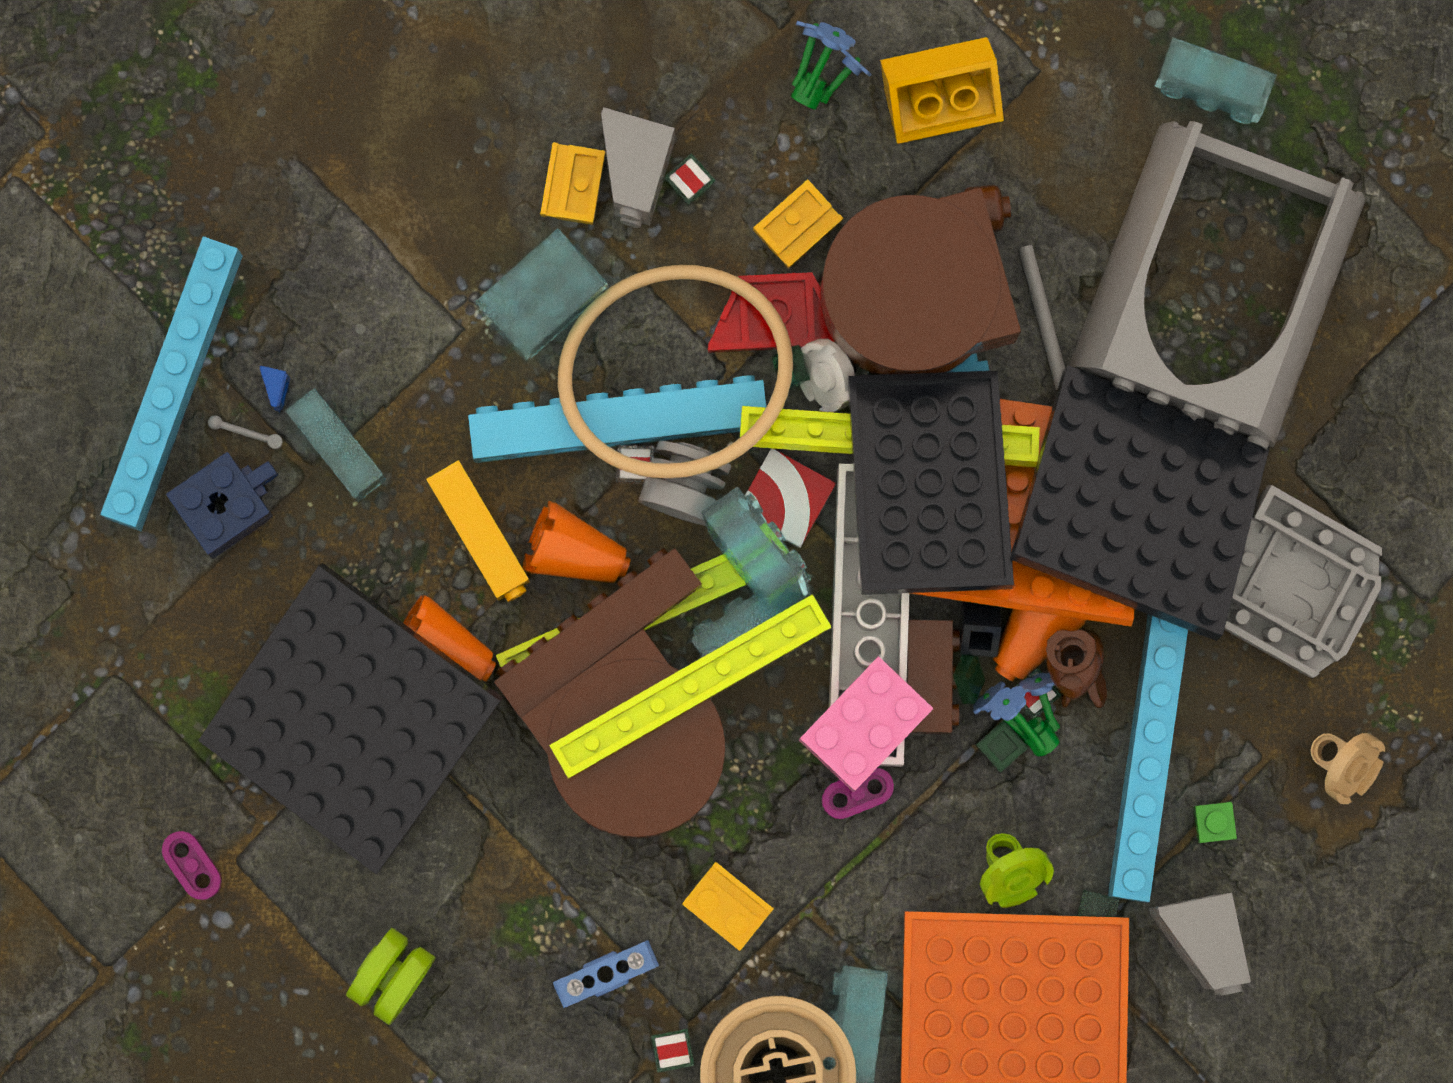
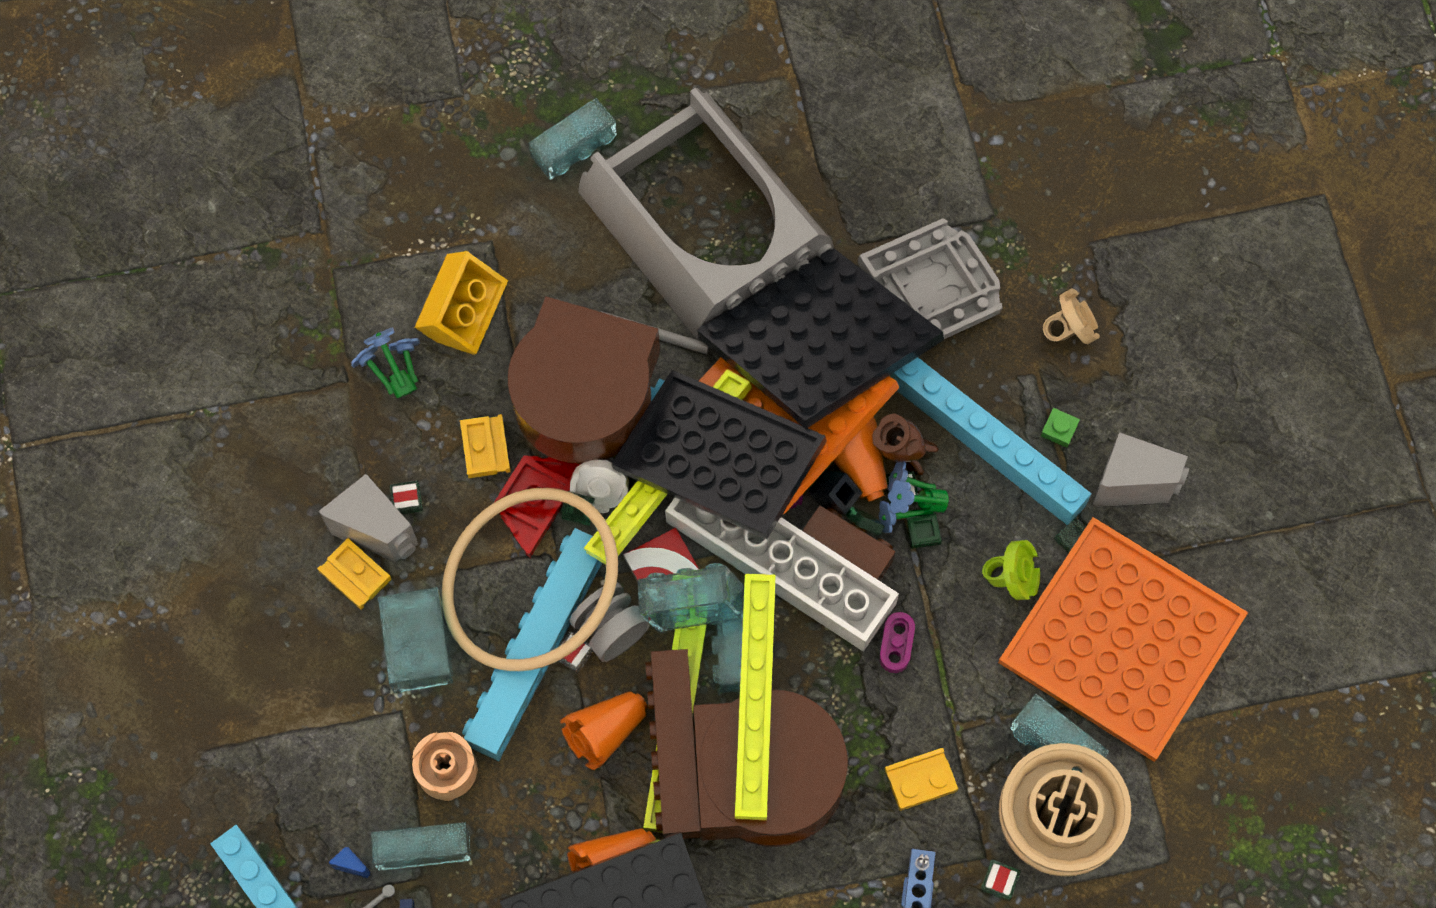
camera: 50 degrees left, 15 degrees down
(416, 398) = (449, 749): none -> light nougat brick
(479, 532) = (548, 783): yellow slope -> none
(865, 724) = (856, 597): bright pink brick -> none

